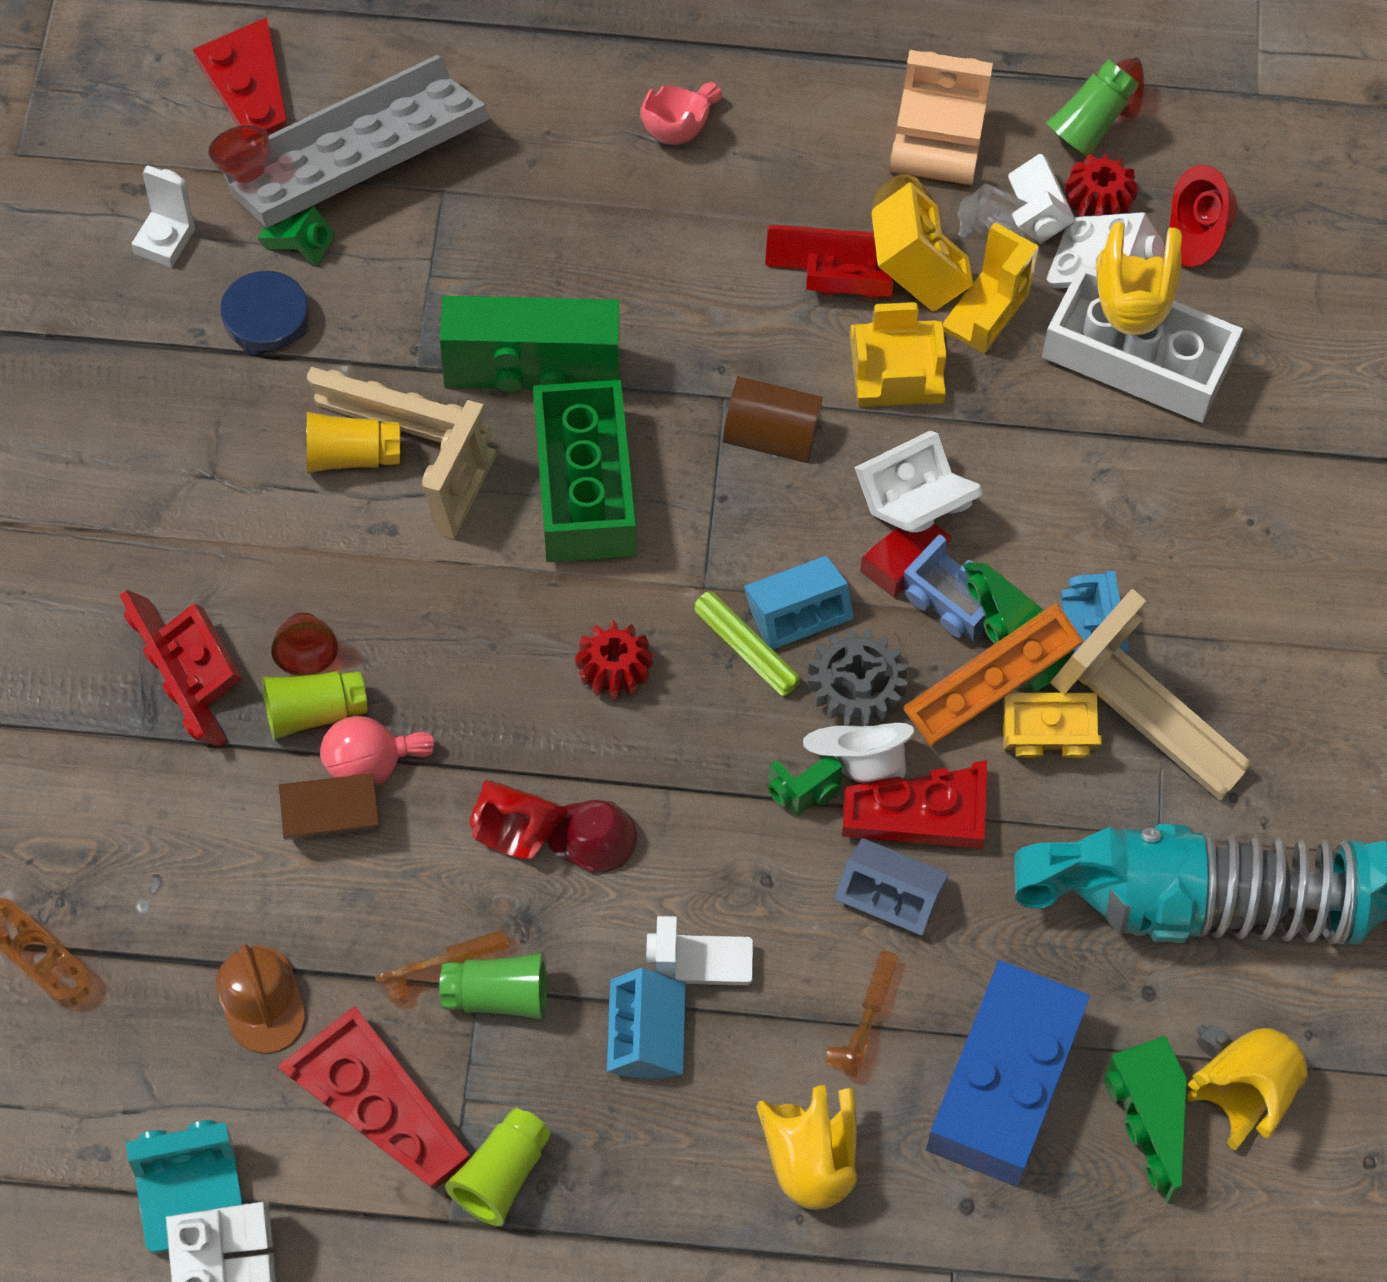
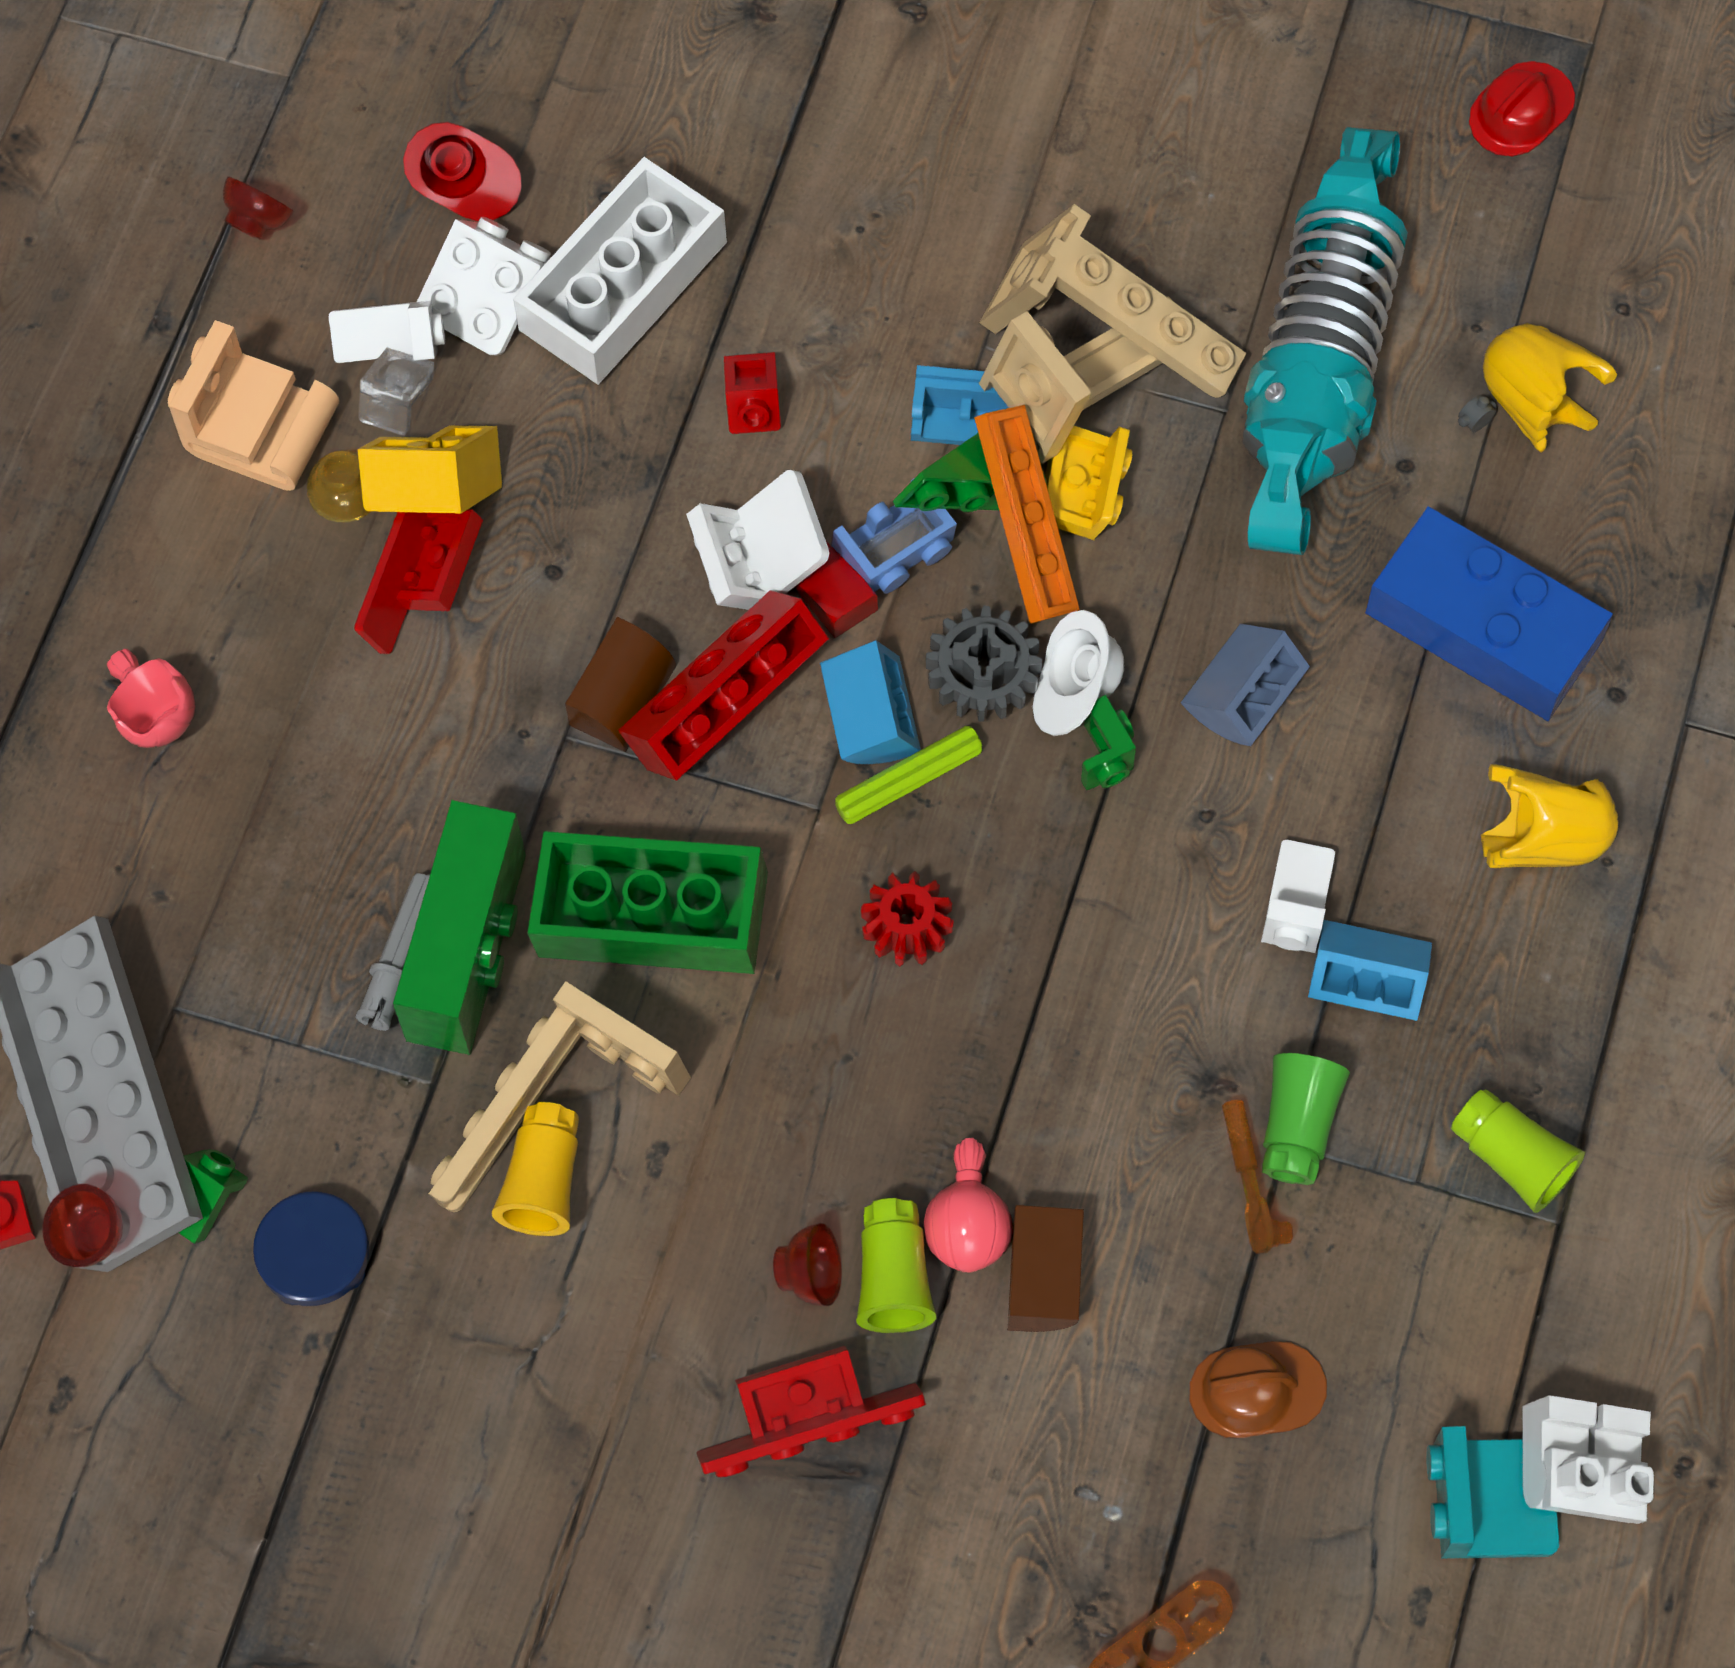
camera: 75 degrees left, 5 degrees up
(170, 218) = (143, 1353): white bracket -> none
(370, 1090) = (1401, 1277): red wing -> none
(513, 819) = (1097, 1062): red hair -> none
(595, 836) = (1118, 988): dark red hat -> none
(785, 486) = (723, 684): none -> red brick
(851, 1057) = (1438, 770): clear orange piece -> none
(898, 358) = (567, 532): yellow panel -> none
(921, 810) = (1158, 630): red wing -> none
(996, 291) = (496, 388): yellow panel -> none
(1064, 460) = (752, 393): none -> red bracket
(1094, 108) = (290, 238): bright green plant -> none
(1101, 187) = (389, 264): red gear -> none
(1134, 290) = (578, 235): yellow hair -> none
(1153, 1098) = (1544, 482): green slope -> none
(1216, 718) = (1071, 264): none -> tan bracket

